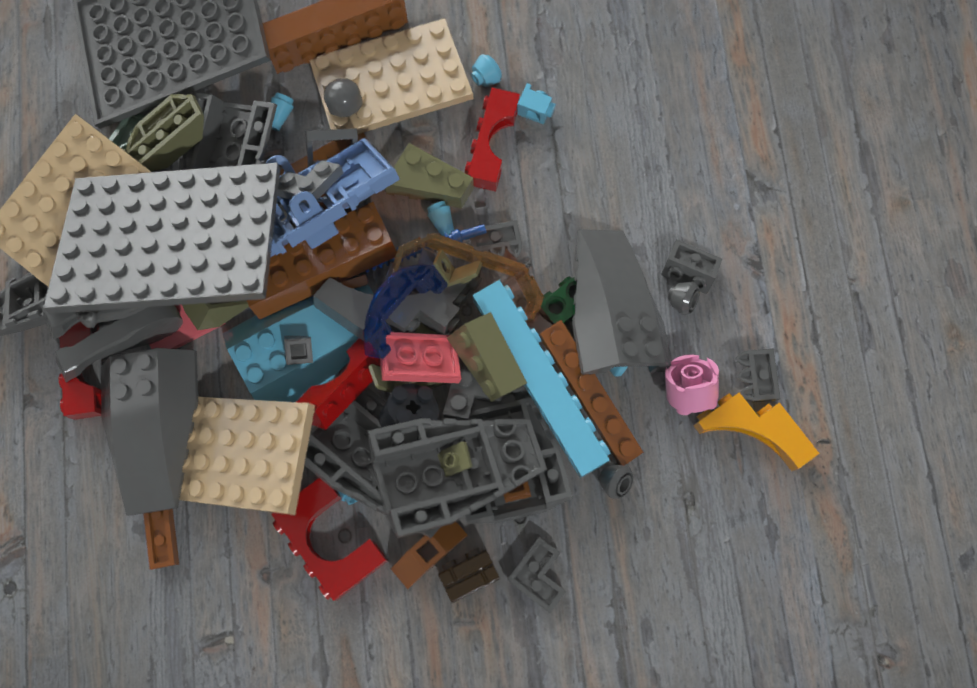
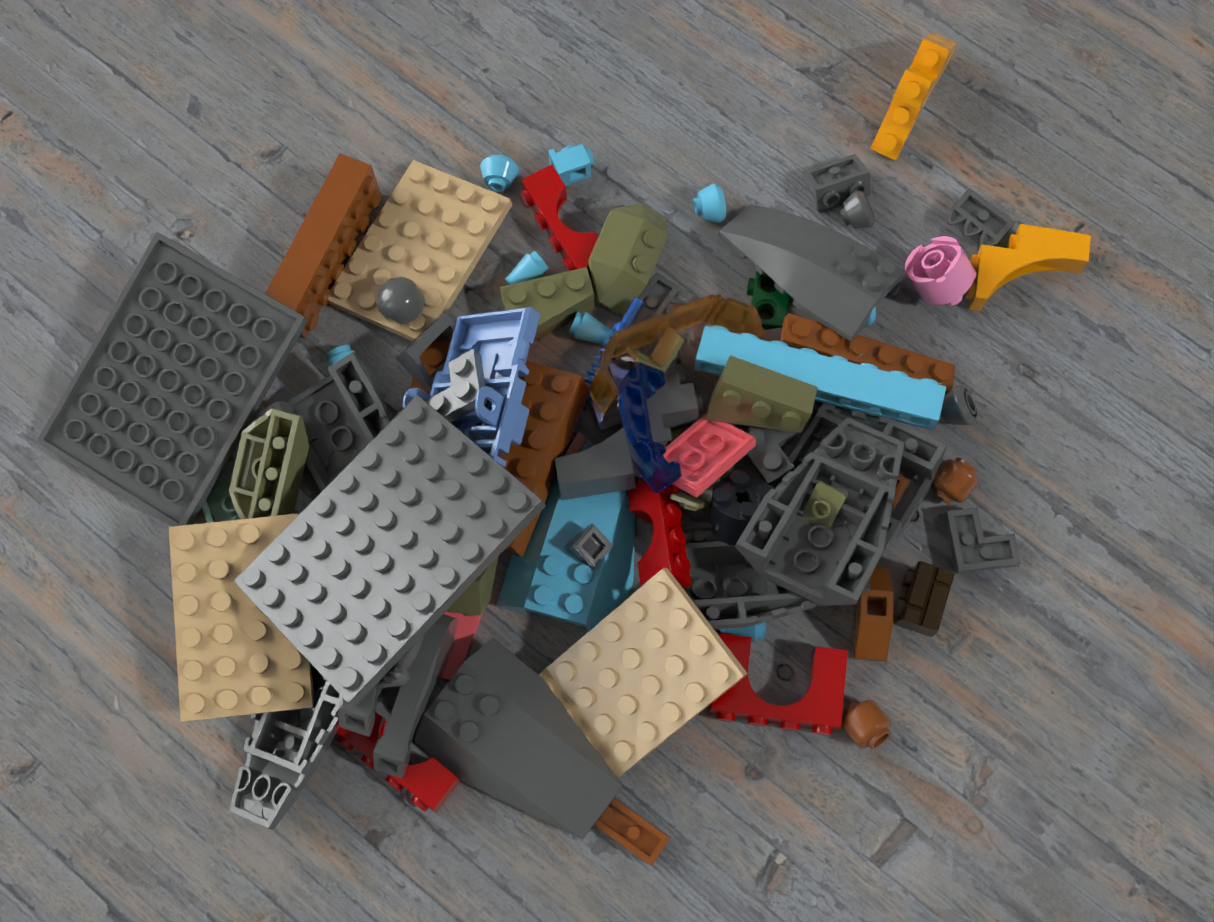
camera: 45 degrees left, 5 degrees down
(354, 614) = (866, 724): none -> dark orange head
(442, 148) = (527, 269): none -> medium azure cone
(509, 190) = (626, 255): none -> olive wedge
(564, 523) = (954, 480): none -> dark orange head
(595, 207) = (710, 204): none -> medium azure cone
(803, 249) = (913, 93): none -> light orange arch

